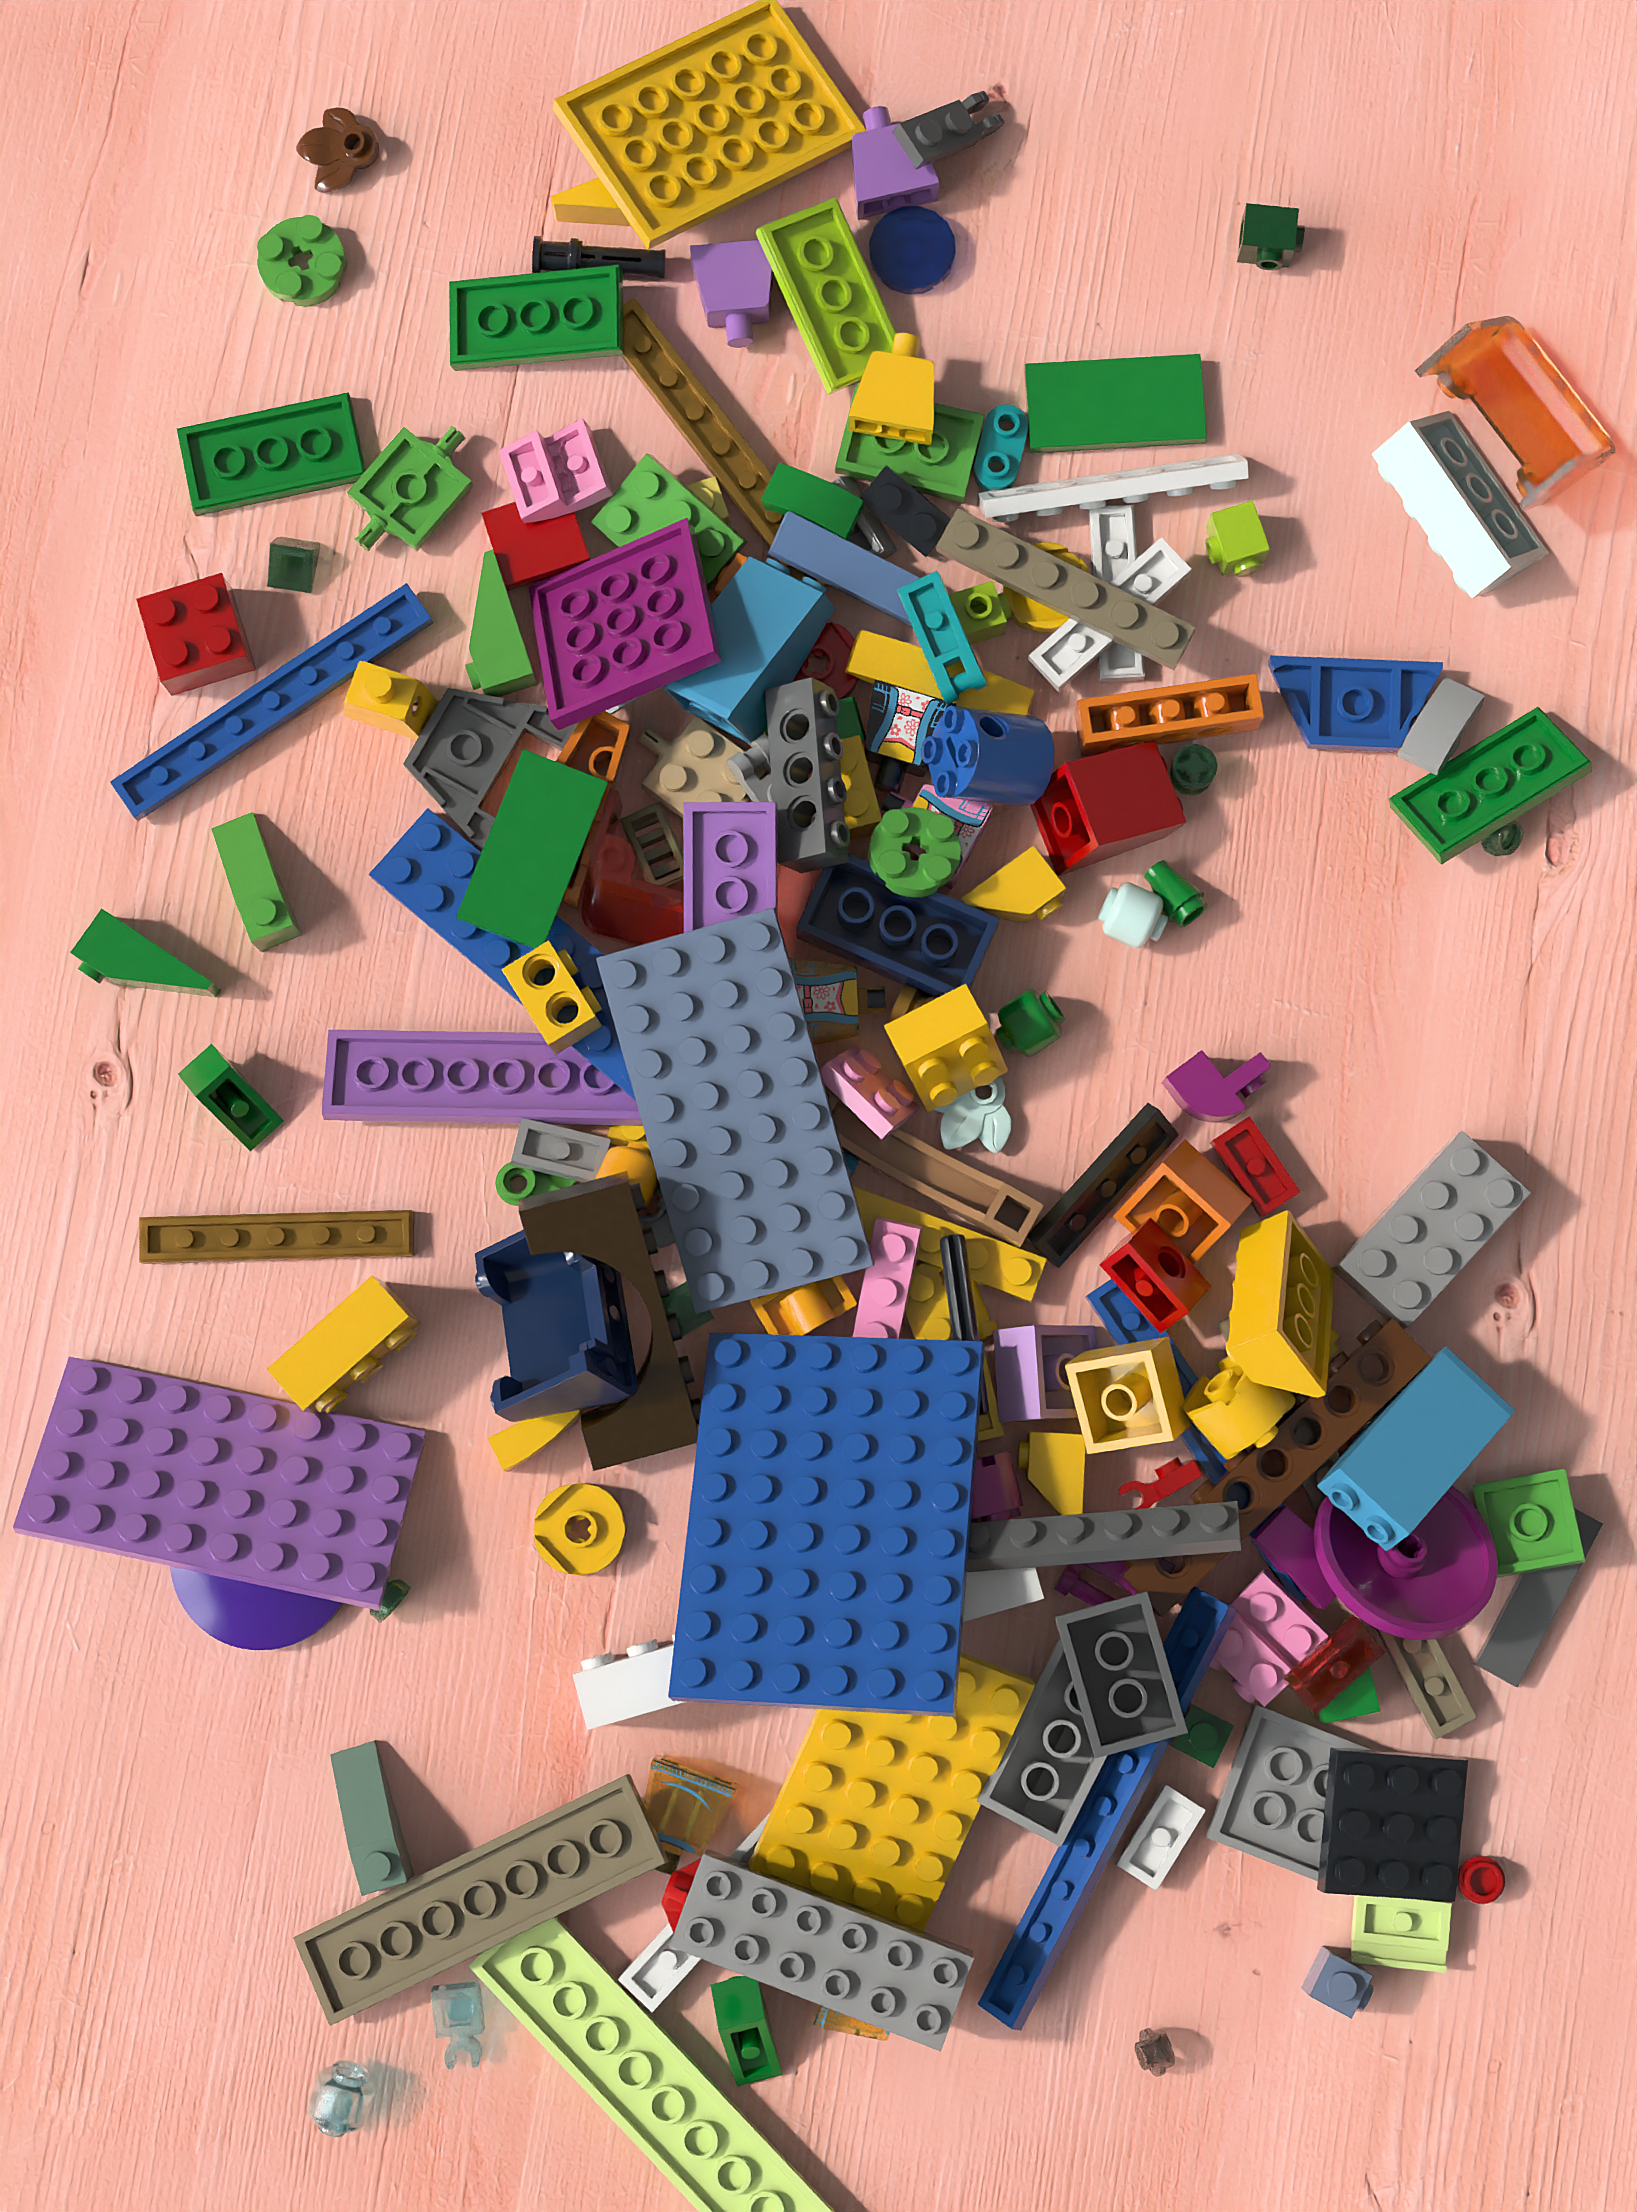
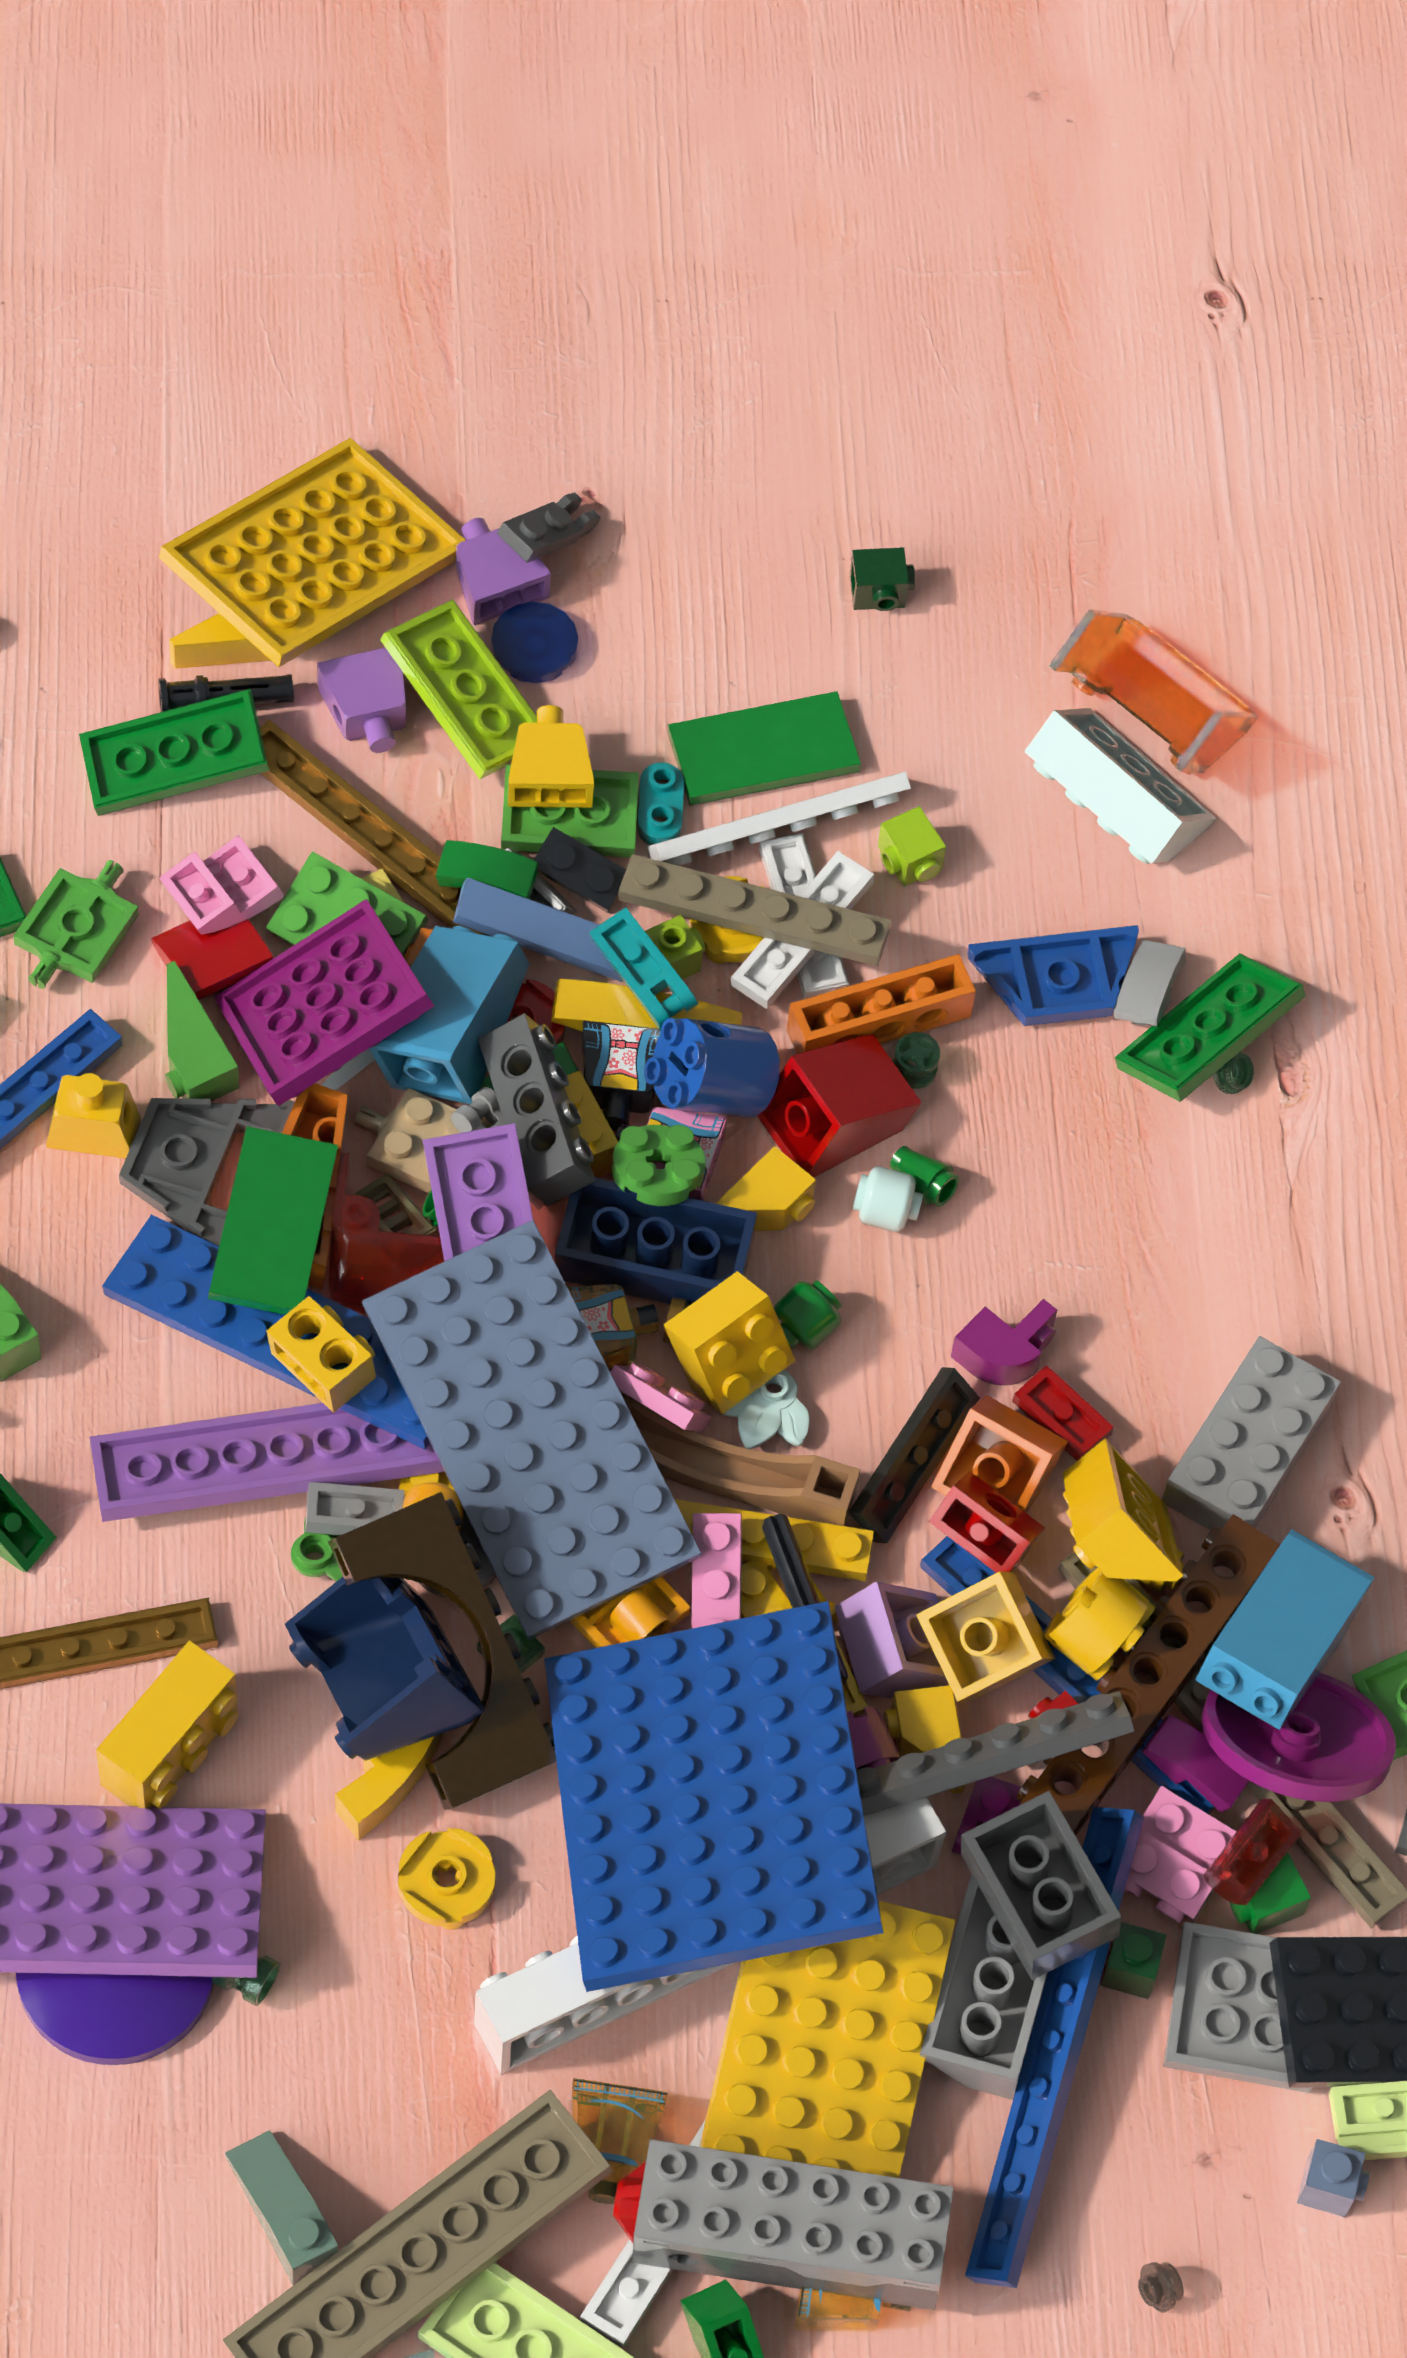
camera: 20 degrees left, 20 degrees down
(1160, 1837) = (1116, 2072): white plate -> none

